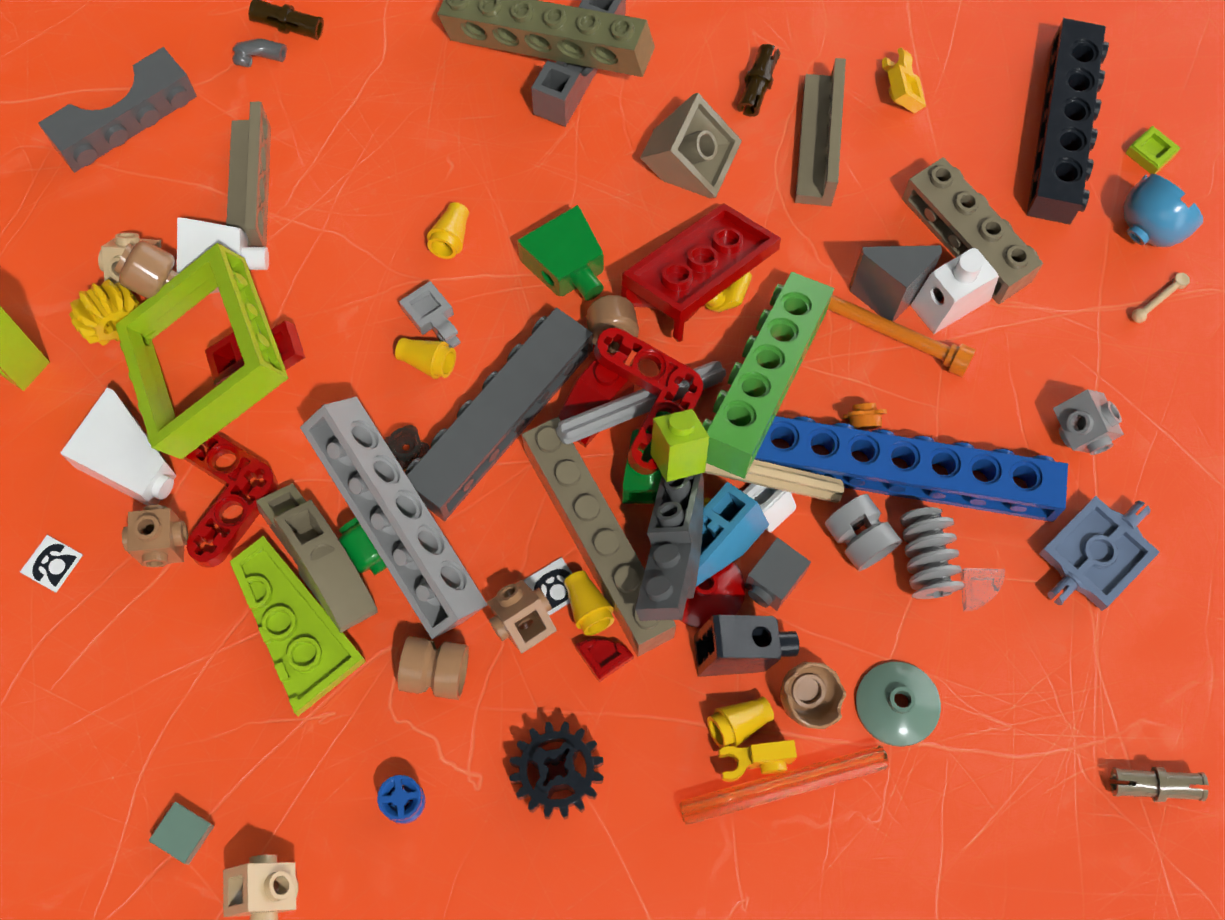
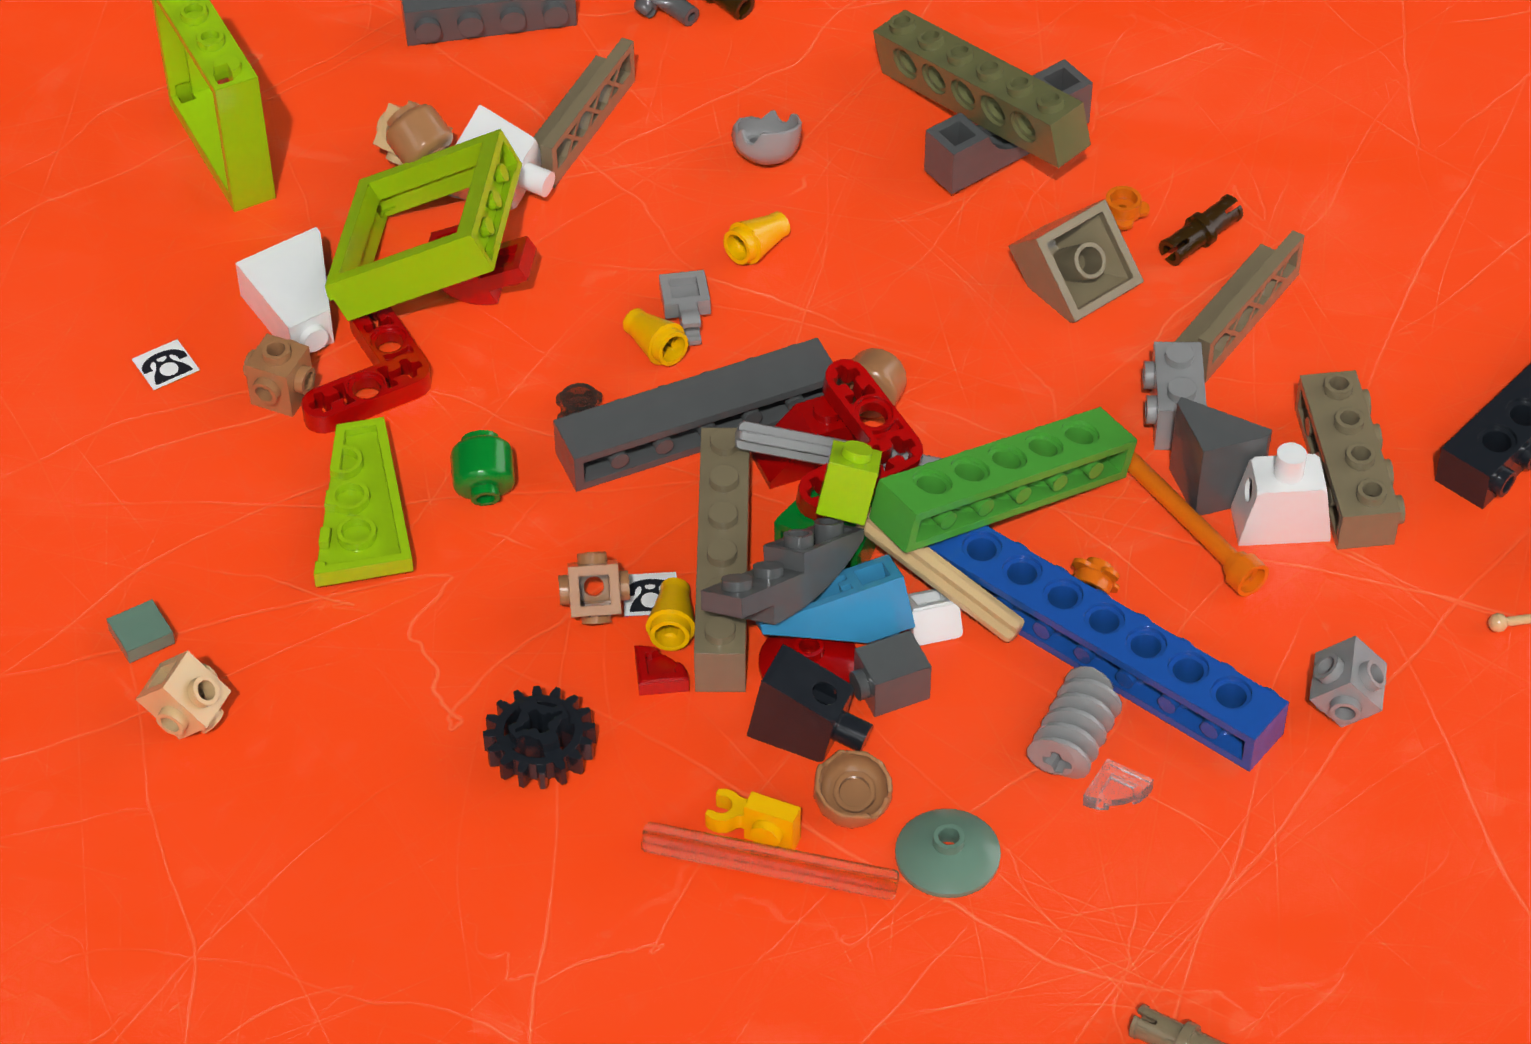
camera: 30 degrees right, 20 degrees down
(100, 310) = (352, 160): yellow gear -> none
(319, 556) = (426, 456): dark tan slope -> none
(393, 516) = (521, 442): light grey brick -> none
(399, 791) = (358, 688): blue wheel -> none
(406, 139) = (767, 138): none -> light grey hair
(427, 667) = (479, 599): medium nougat wheel -> none
(565, 255) = (863, 301): green torso -> none
(692, 77) = (1126, 206): none -> orange plate
(698, 264) = (992, 360): red plate -> none
(731, 296) = (1025, 416): yellow arm -> none
(739, 721) = (763, 778): yellow cone -> none
(830, 231) = (1171, 374): none -> light grey brick
(870, 544) = (1012, 674): light grey wheel -> none
(905, 85) = (1369, 294): yellow plate -> none
(1099, 553) = (1275, 811): sand blue plate -> none

